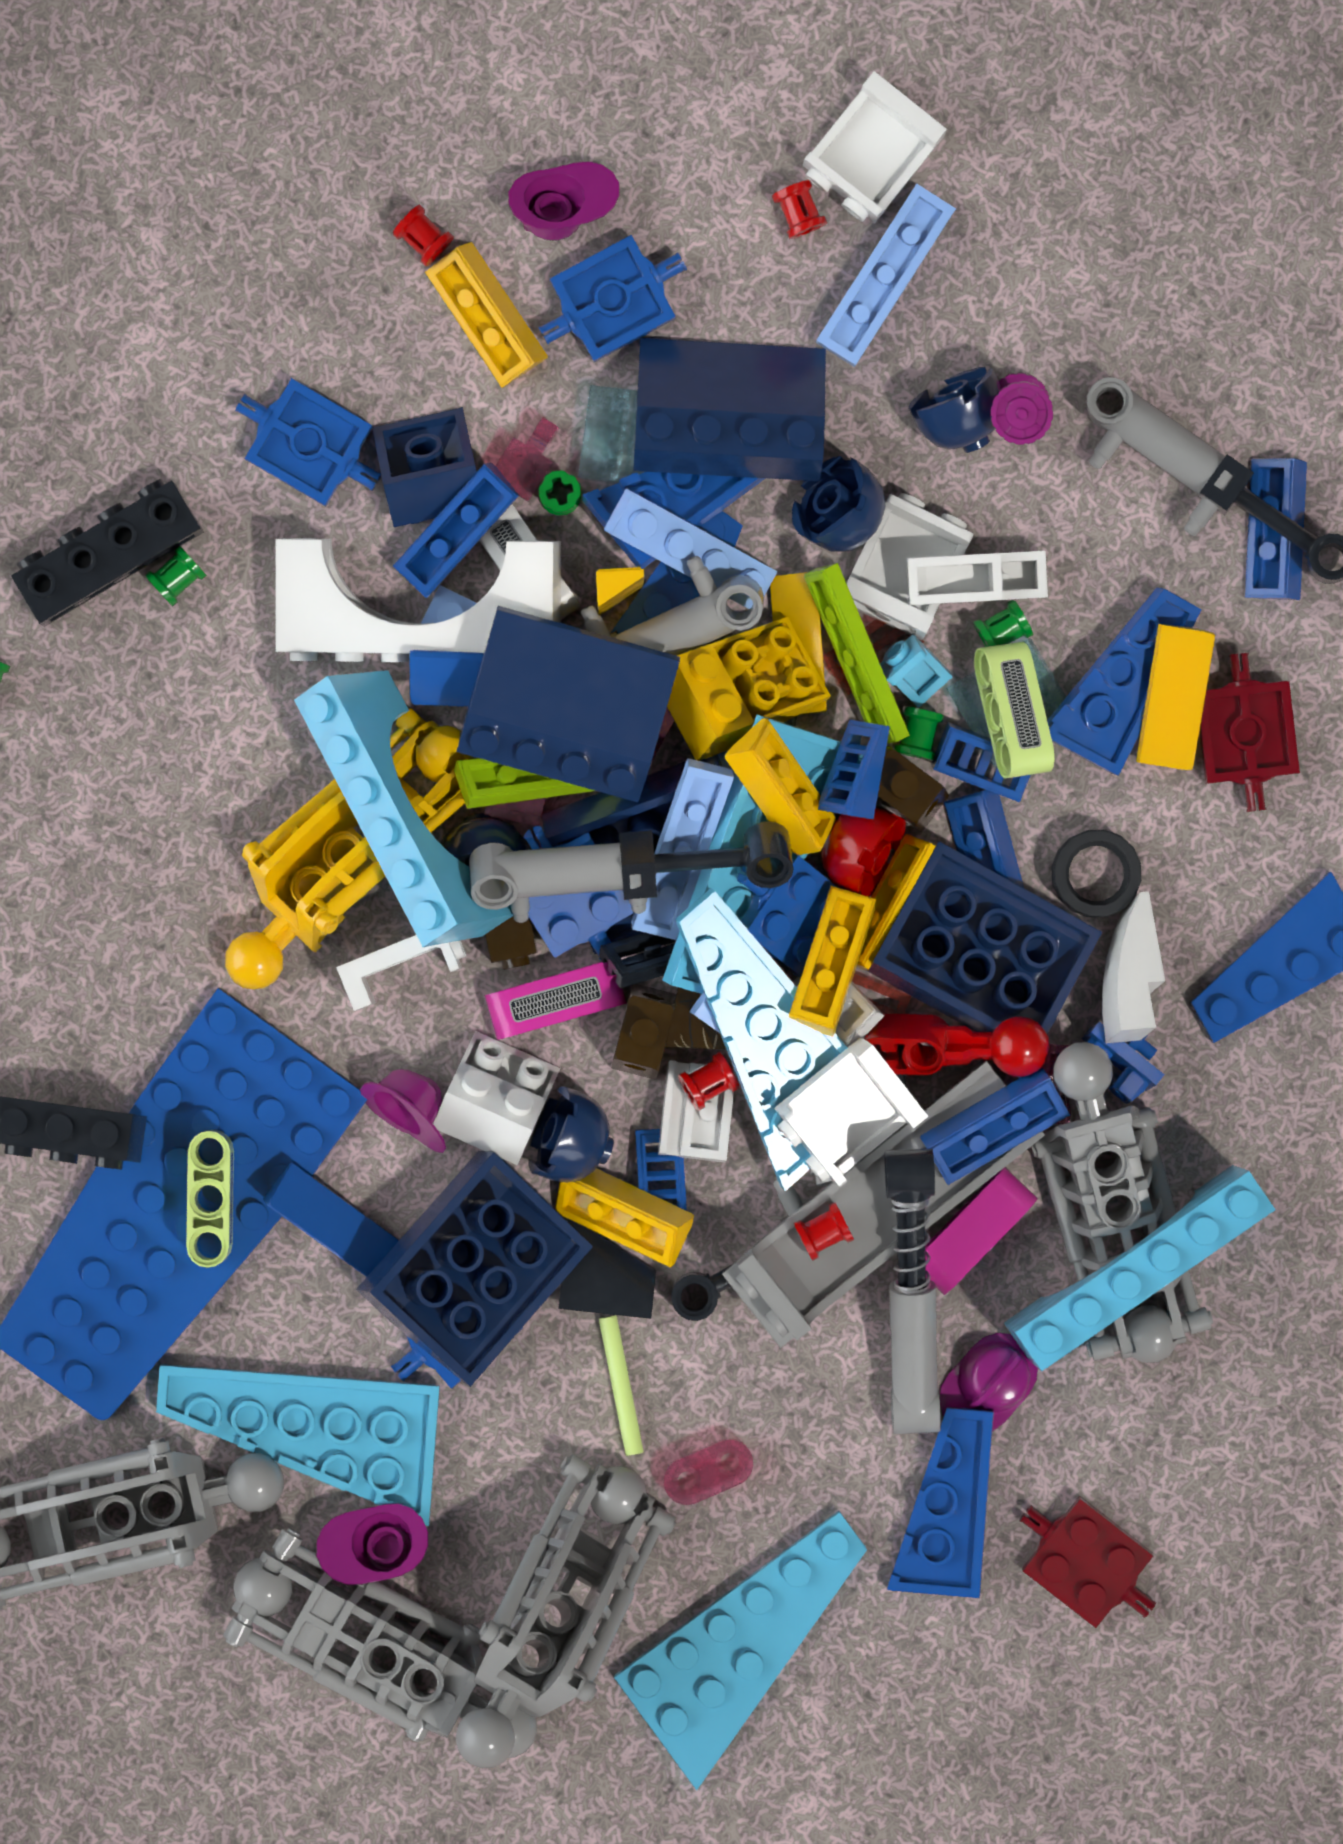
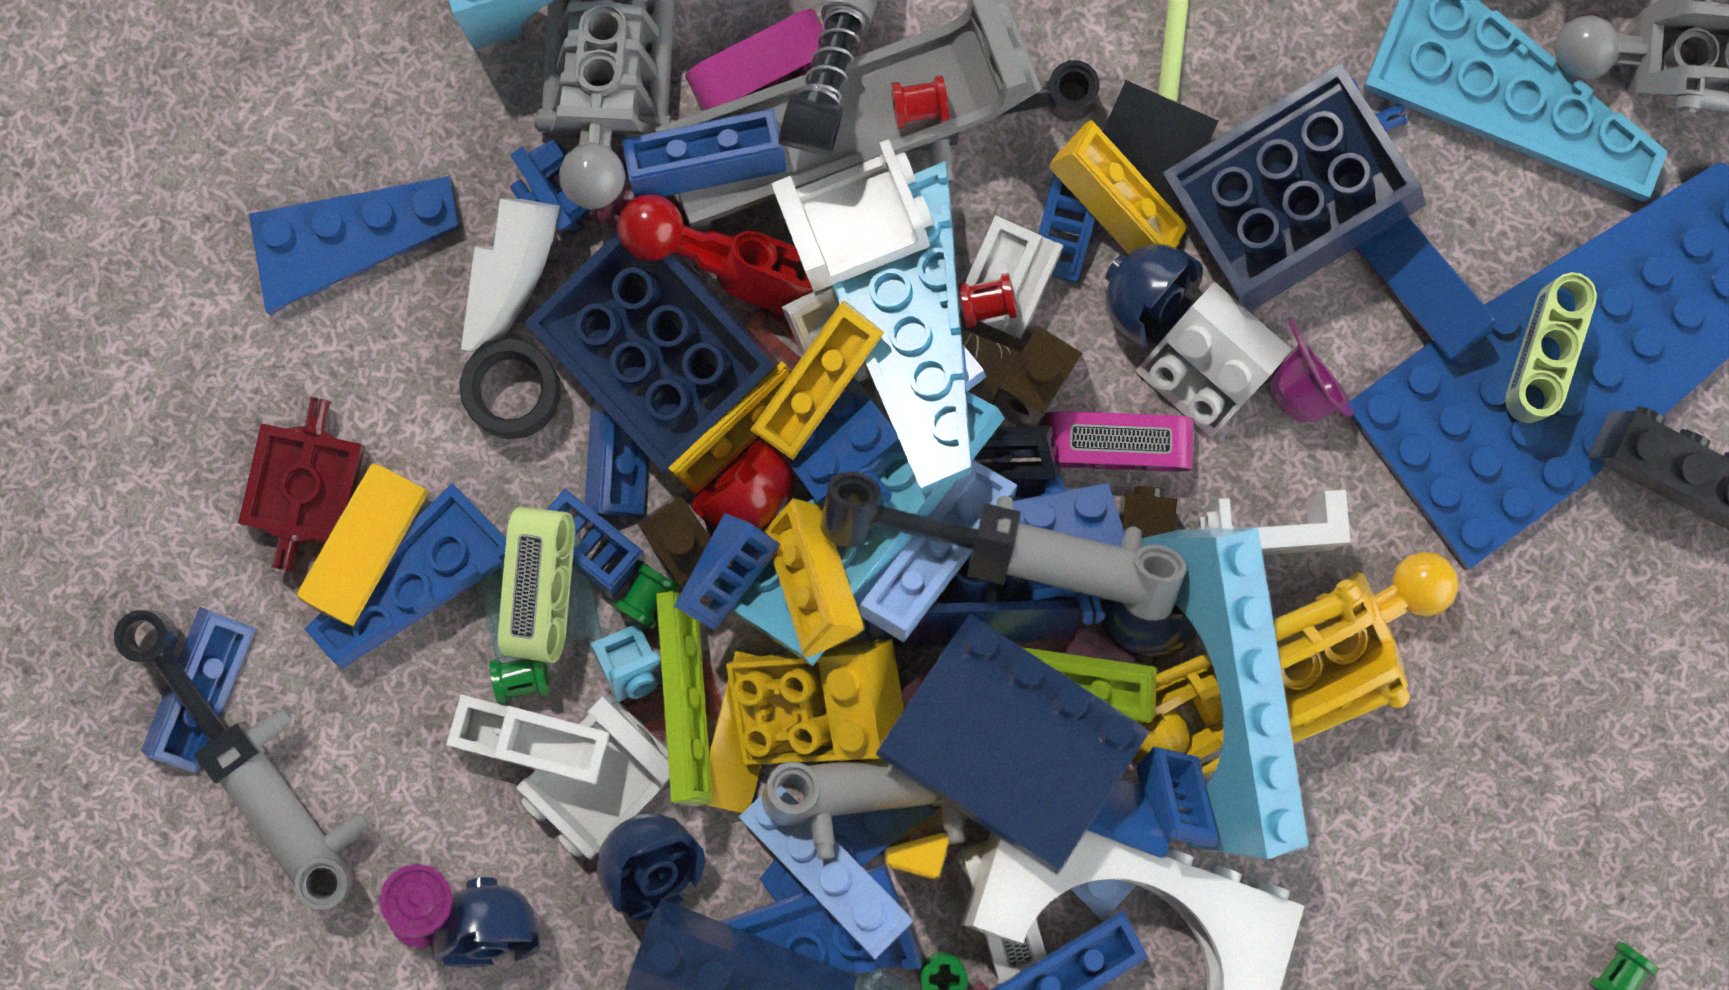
camera: 165 degrees left, 5 degrees down
(414, 730) = (1177, 784): none -> blue slope

